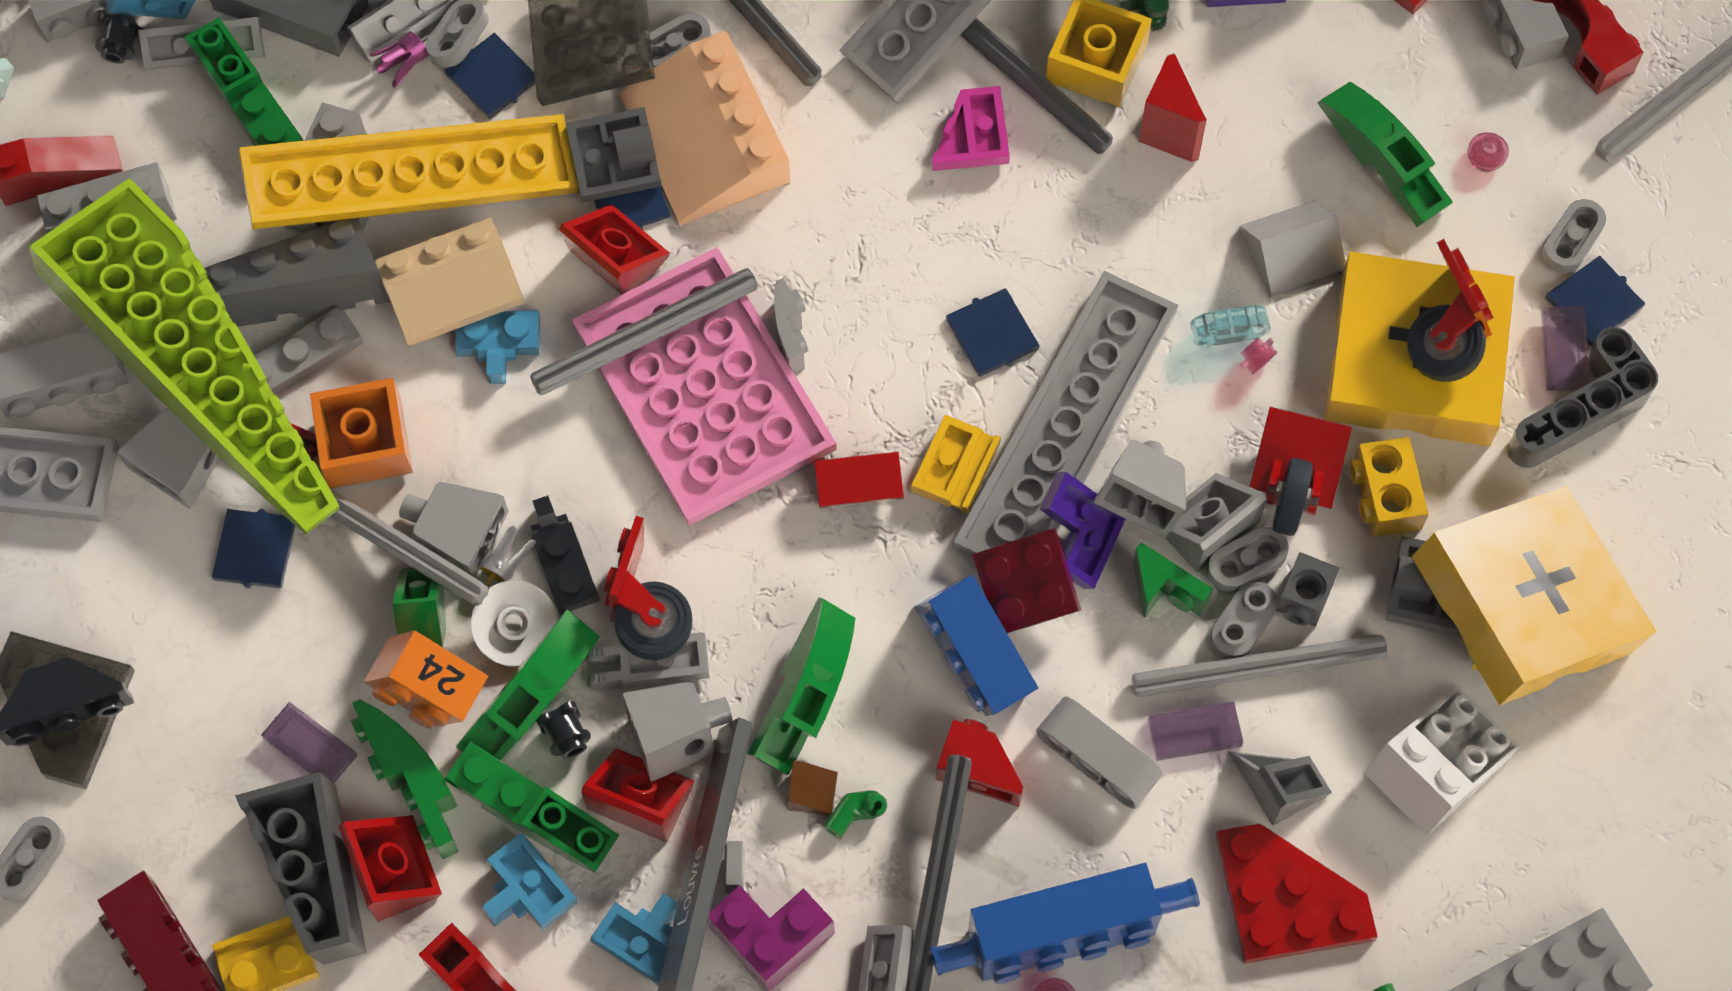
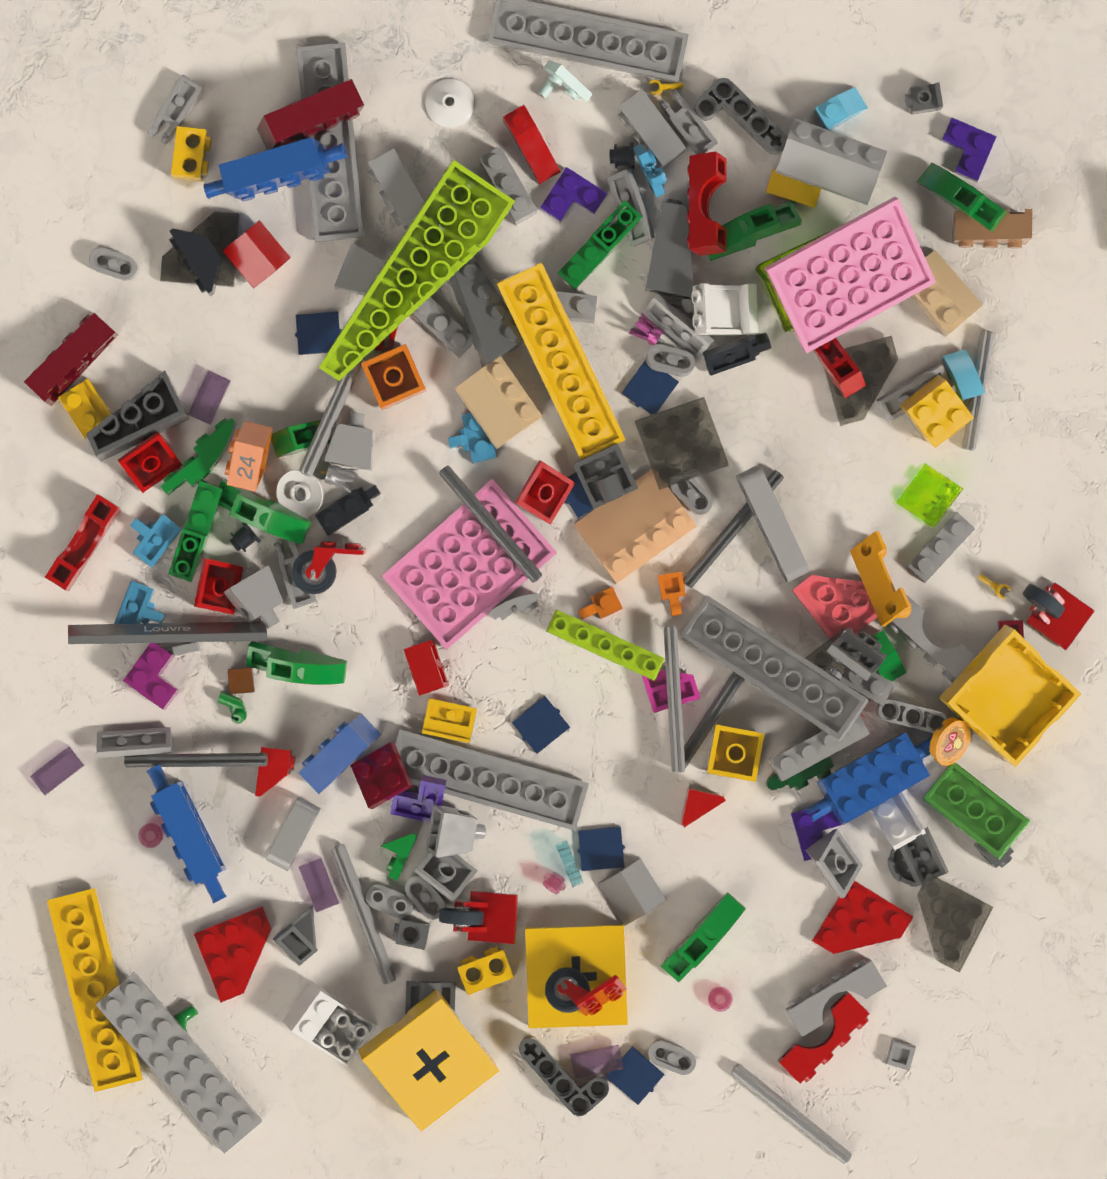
camera: 75 degrees right, 20 degrees up
(90, 615) = (256, 254): none -> slope
(147, 124) = (570, 189): none -> dark purple plate
(816, 96) = (672, 588): none -> orange plate
(818, 202) = (603, 604): none -> orange plate
(886, 192) = (605, 645): none -> lime slope
(994, 118) = (674, 699): none -> light grey axle
(1213, 279) = (601, 849): none -> dark blue piece

